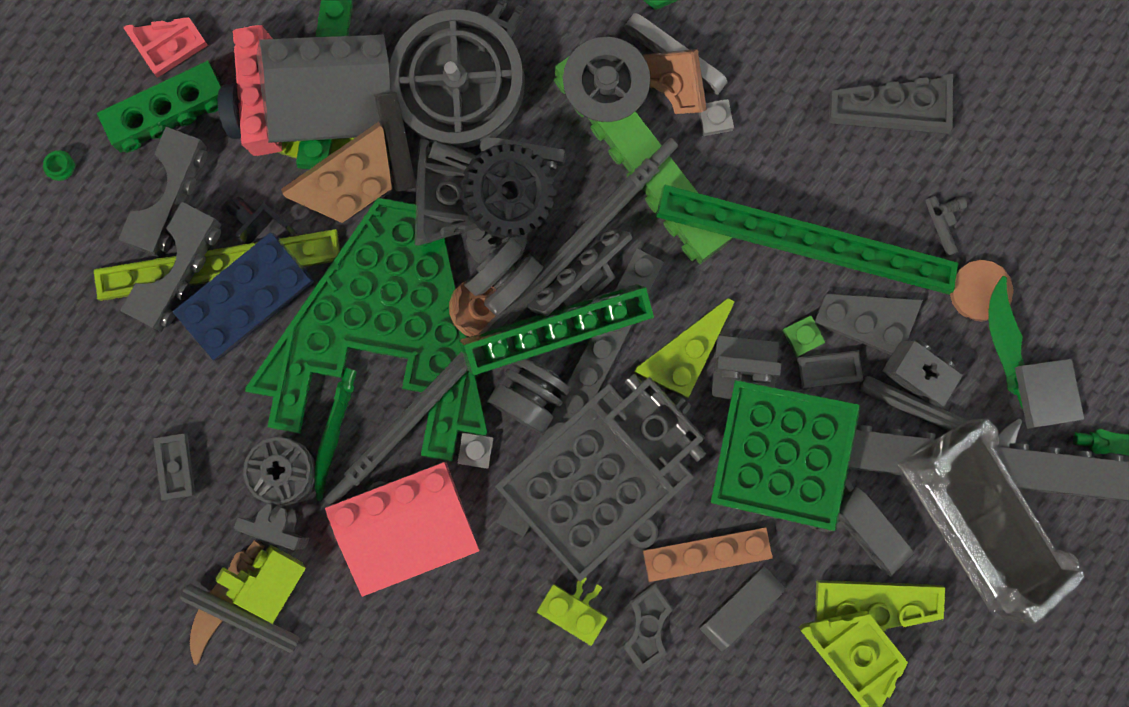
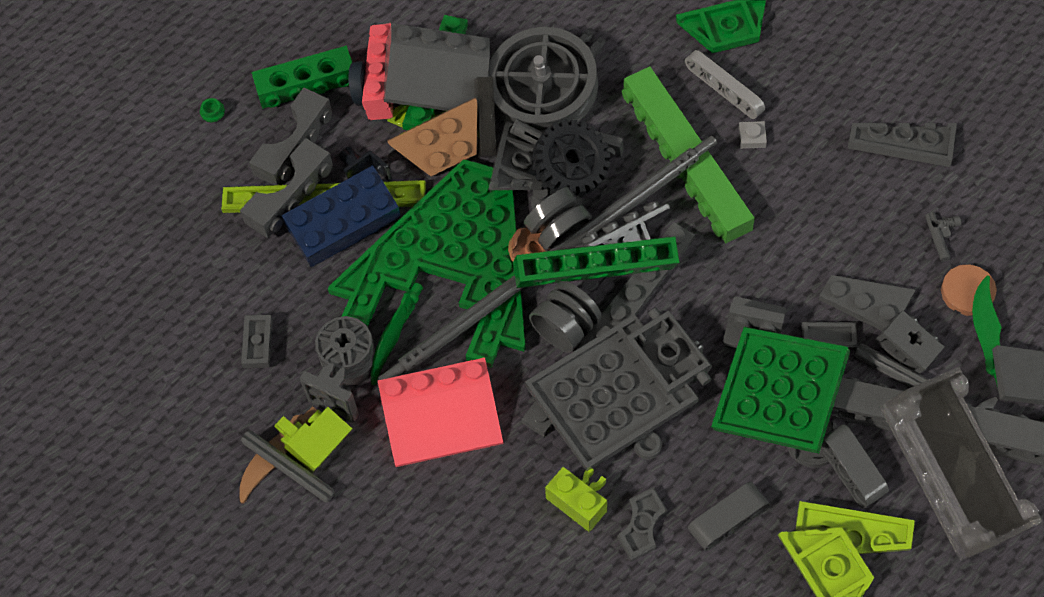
camera: 15 degrees right, 20 degrees down
(166, 43) = (316, 34): coral wing -> none
(475, 450) = (512, 362): light grey plate -> none
(606, 79) = (663, 86): dark grey wheel -> none
(679, 79) = (723, 98): nougat tile -> none
(683, 358) = (704, 310): lime wing -> none
(707, 554) = (703, 470): nougat plate -> none
(803, 336) = (809, 307): bright green plate -> none
(806, 239) = (820, 227): green plate -> none

